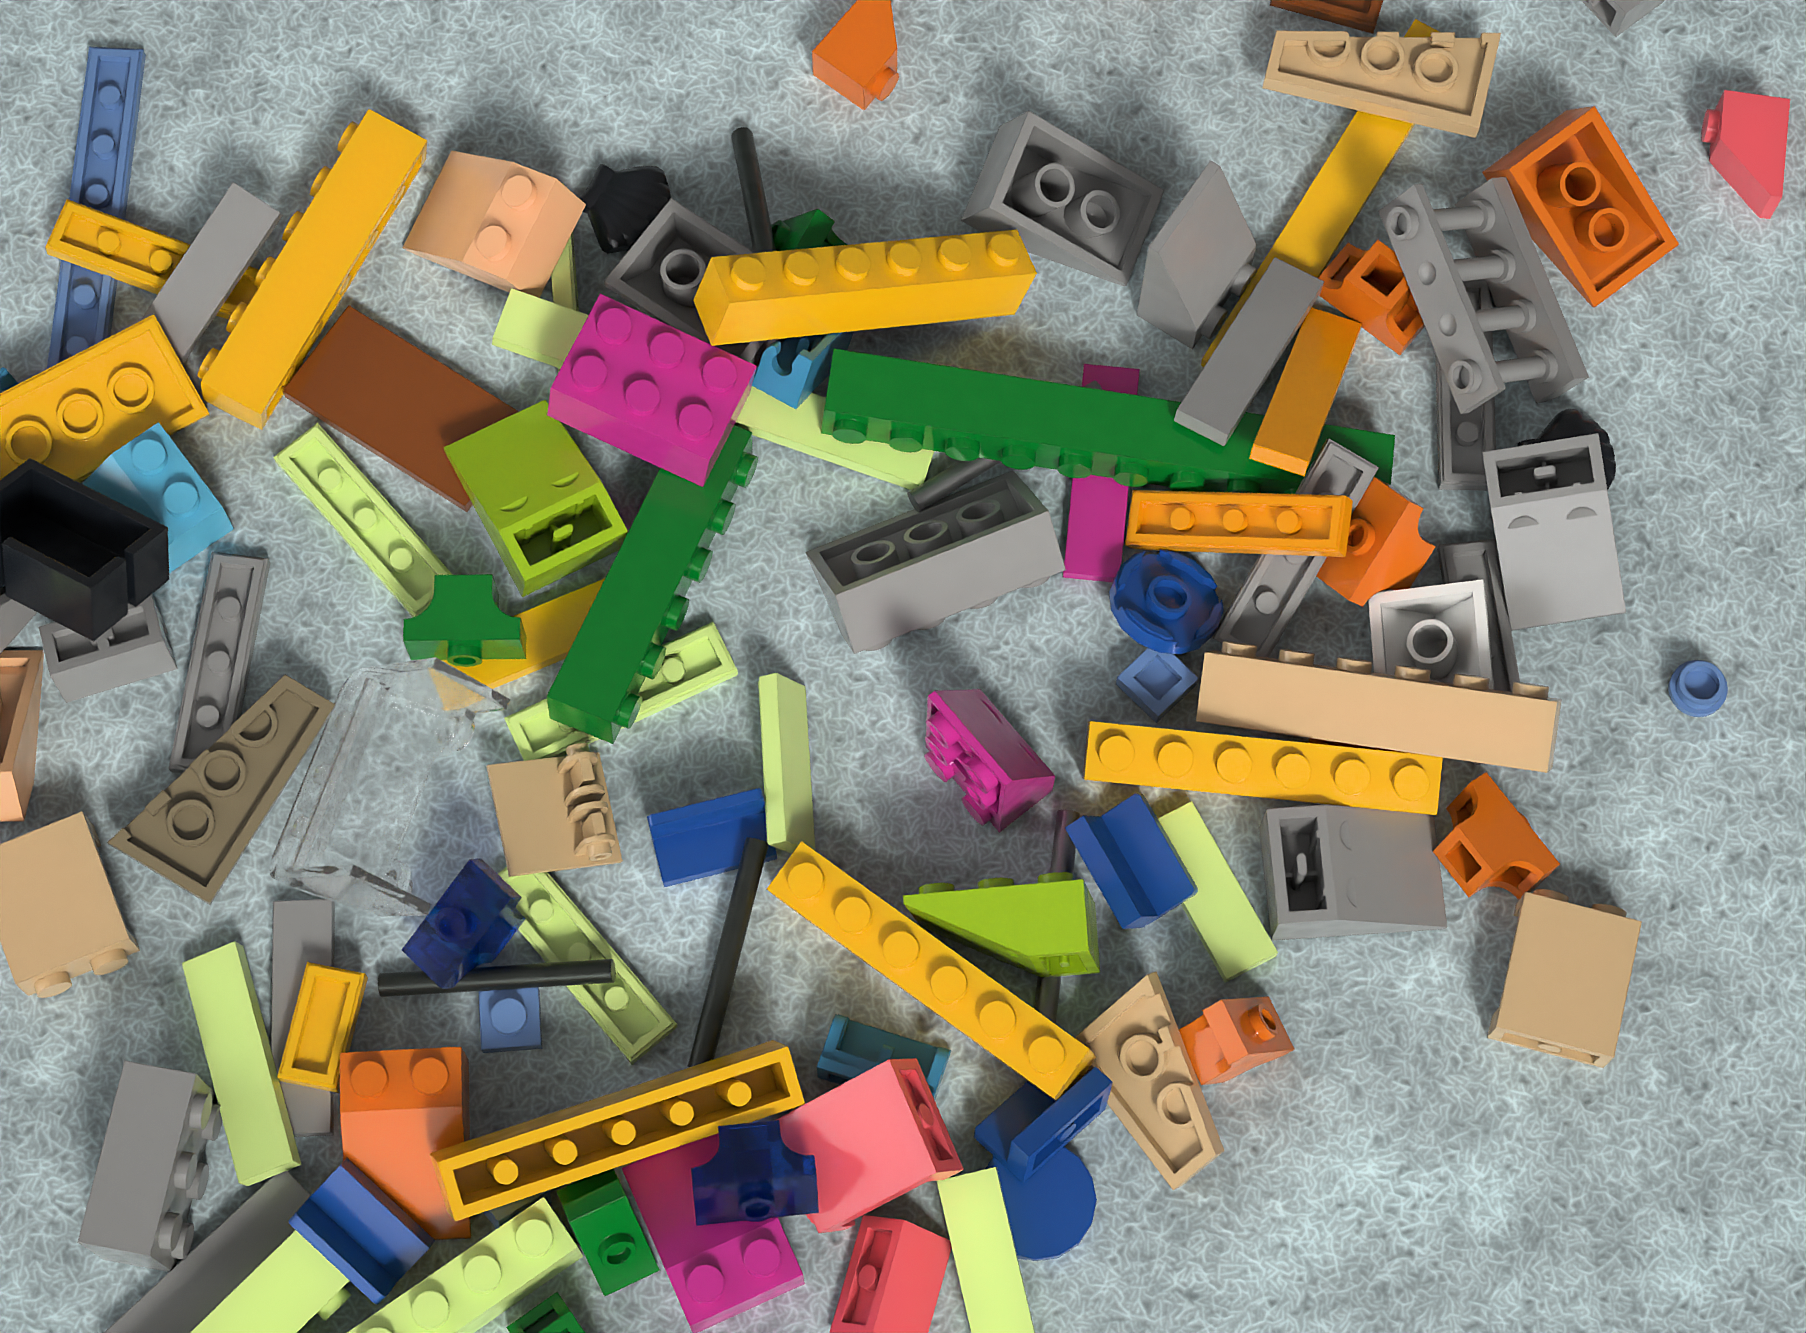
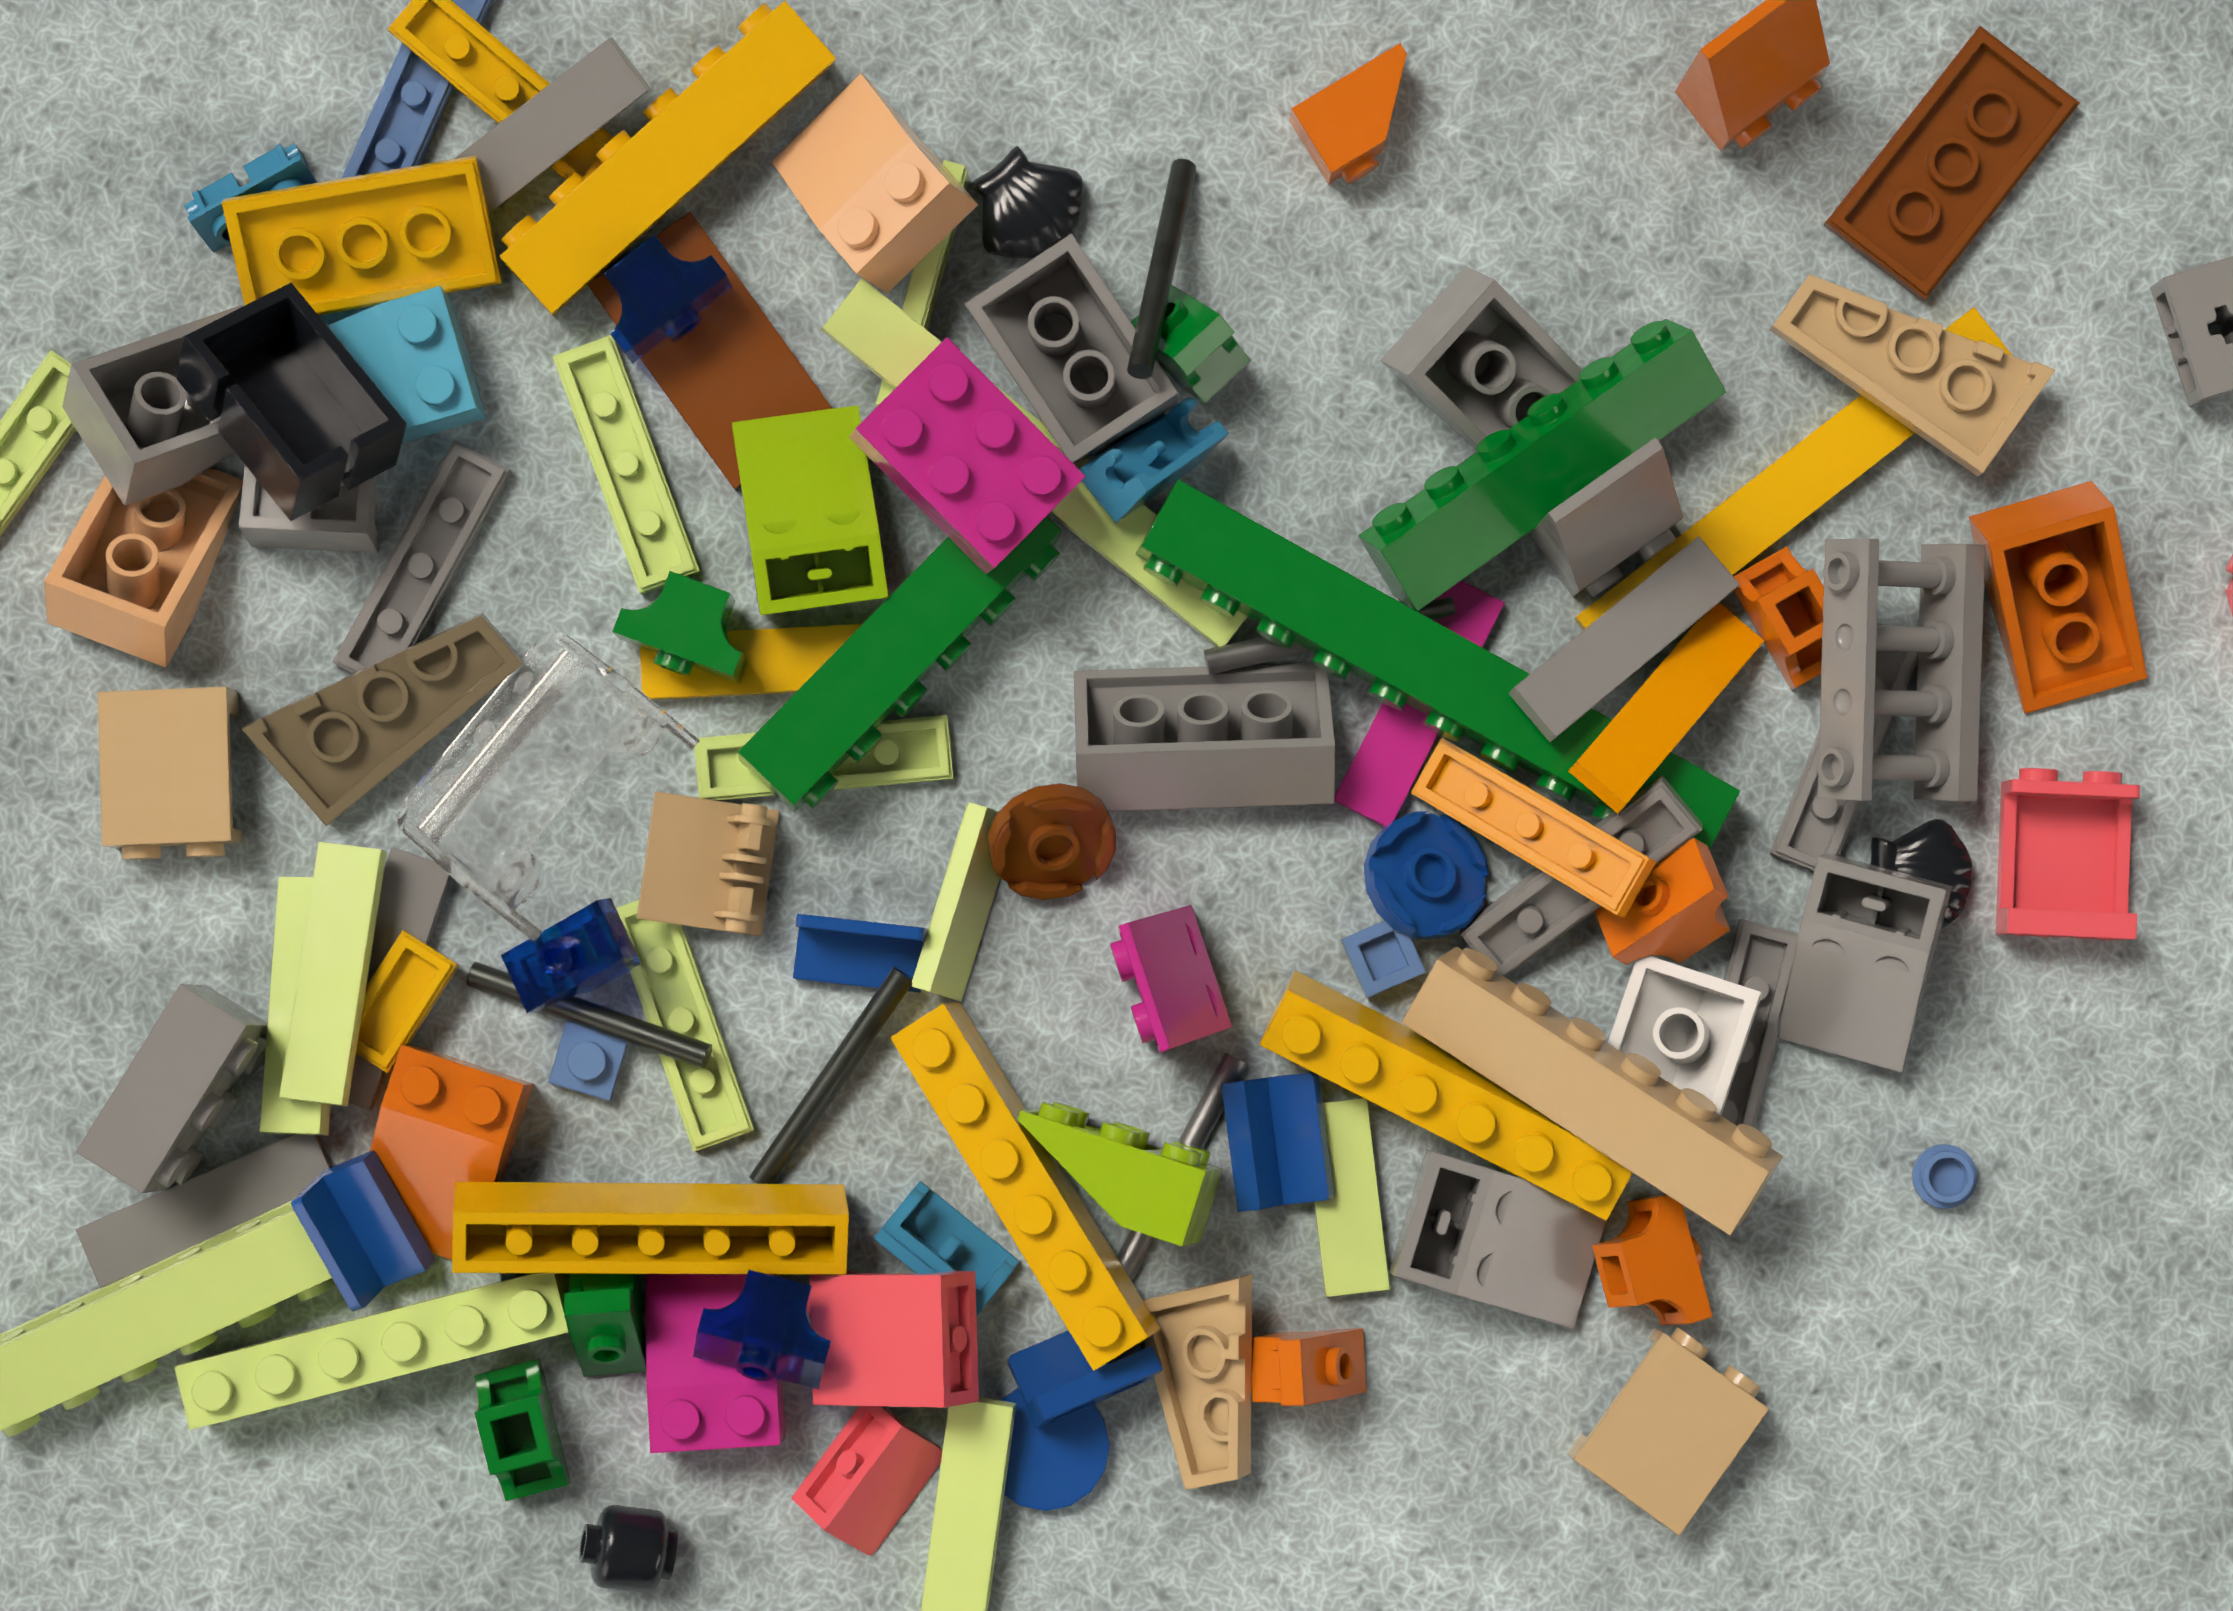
camera: 20 degrees right, 15 degrees up
(258, 1020) = (333, 974): none -> yellowish green tile
(348, 369) = (661, 296): none -> clear blue brick
(841, 684) = (1051, 841): none -> dark orange tile
(863, 286) = (1236, 421): yellow brick -> none
(1108, 259) = (1540, 462): none -> green brick
(1678, 400) = (2065, 856): none -> coral panel

